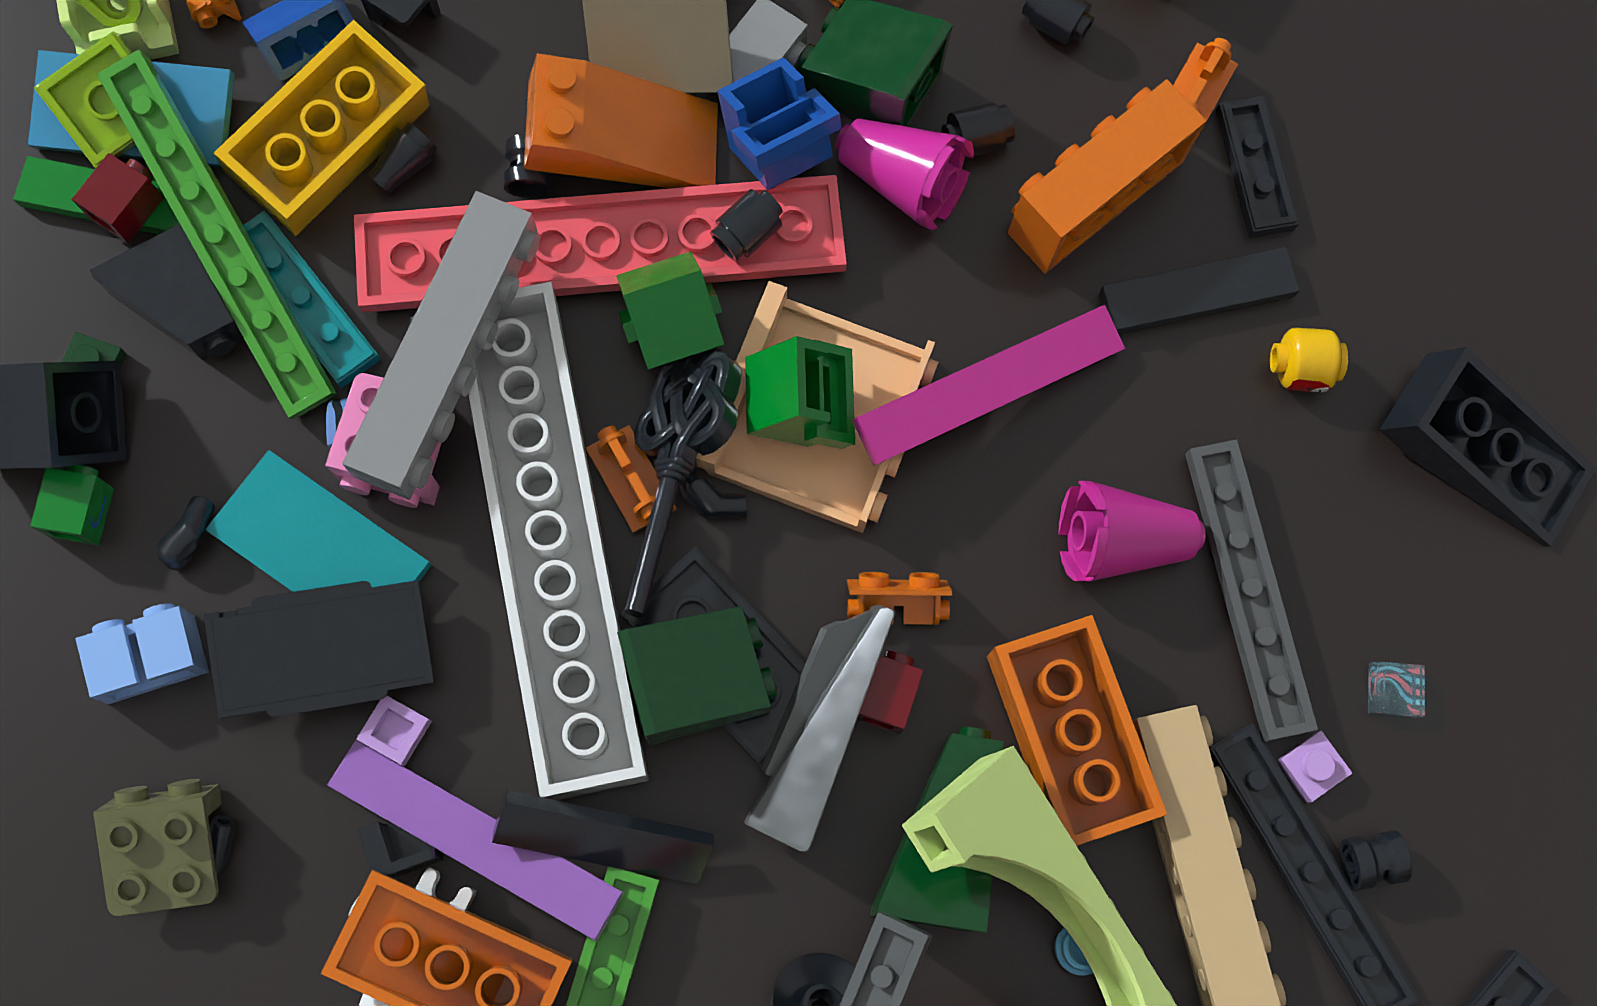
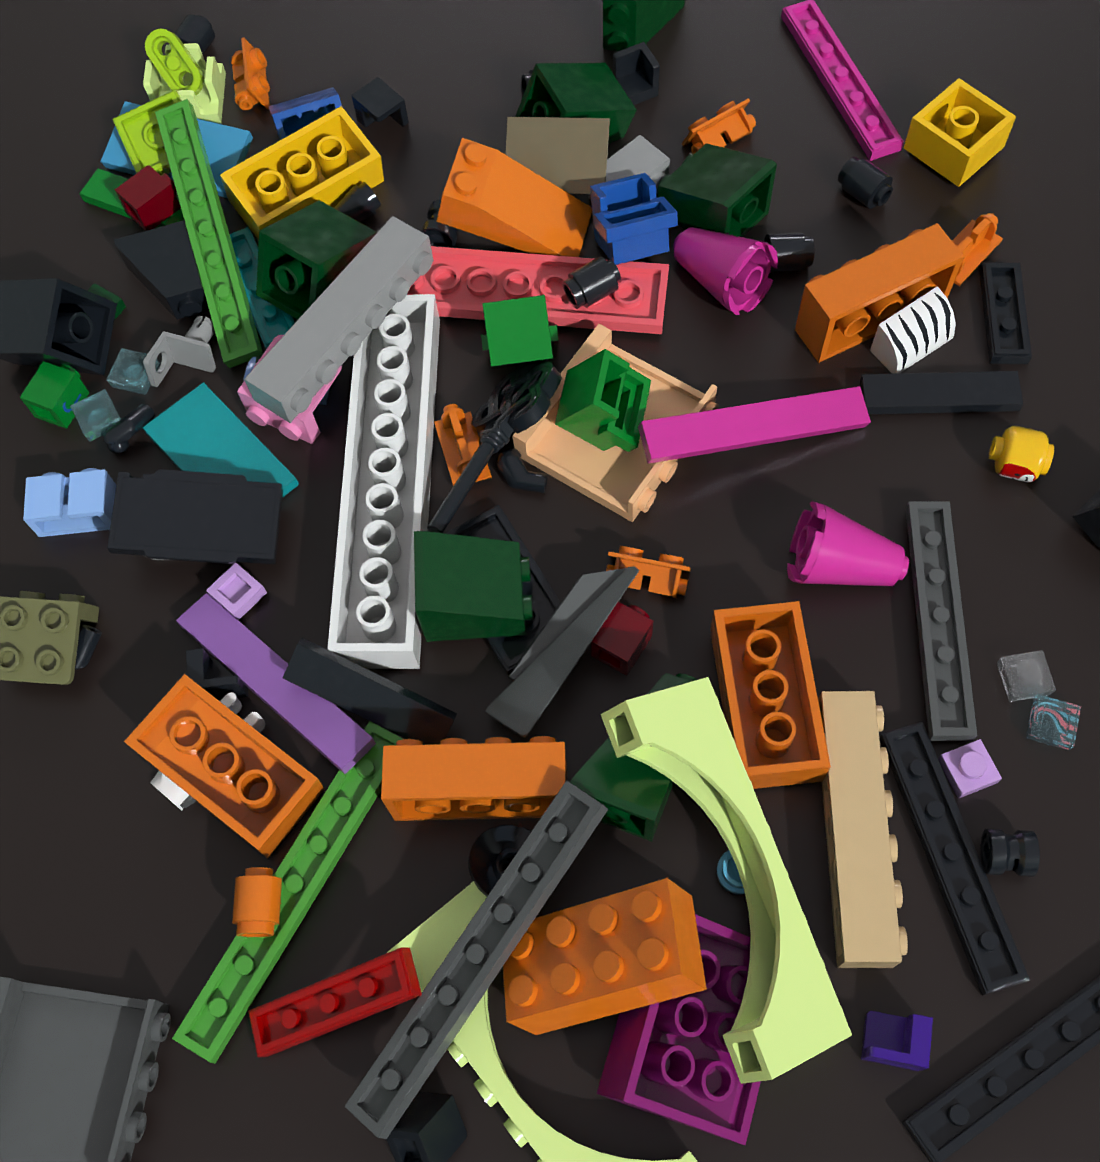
camera: 25 degrees right, 10 degrees down
(137, 523) = (95, 414): none -> clear light blue plate
(169, 451) = (129, 372): none -> clear light blue plate
(235, 408) = (188, 350): none -> light grey bracket
(375, 258) = (306, 255): none -> dark green slope
(760, 917) = (472, 779): none -> orange brick
(1156, 217) = (914, 331): none -> white brick
(1357, 639) = (1026, 675): none -> clear plate

